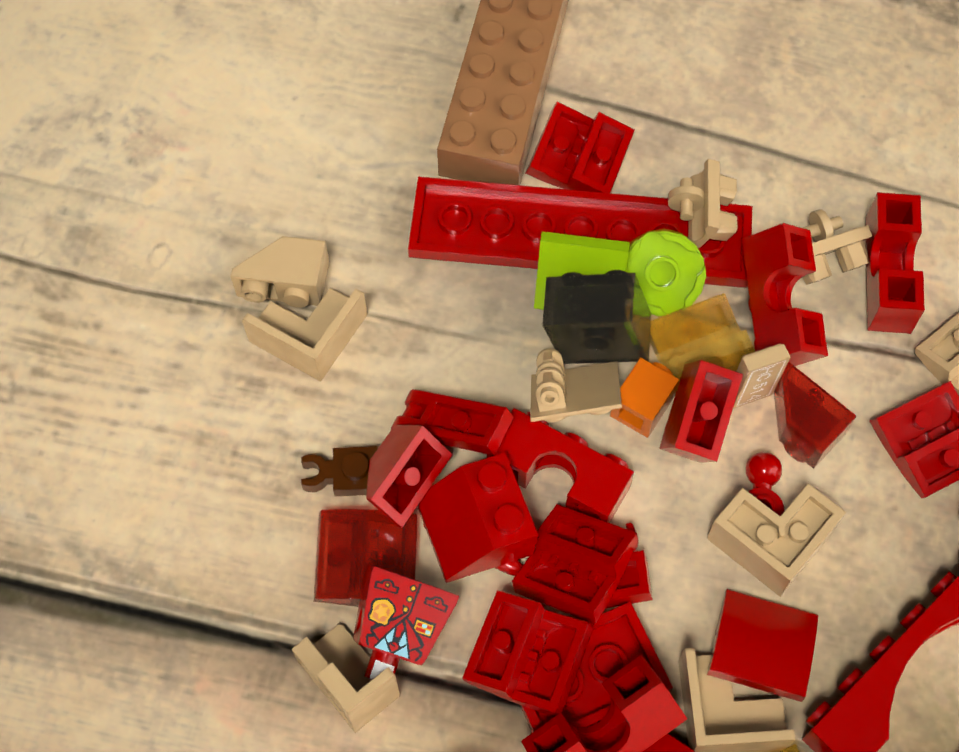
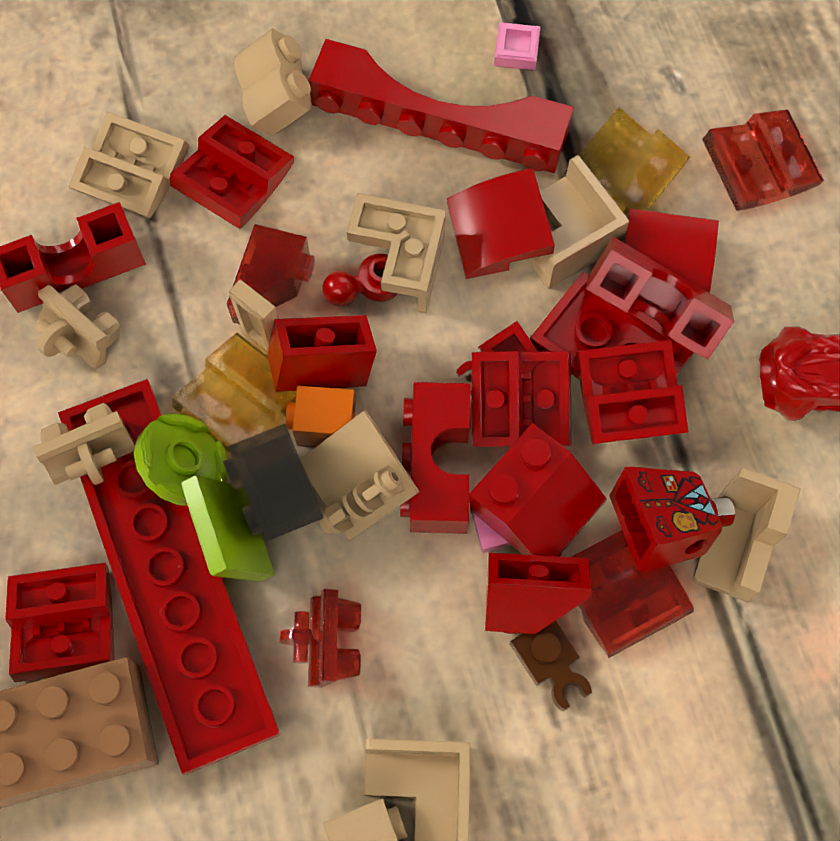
camera: 120 degrees left, 5 degrees up
(440, 307) = (327, 617): none -> clear red hips
(457, 420) = (455, 571): red plate -> none
(773, 266) = (195, 323): red arch -> none

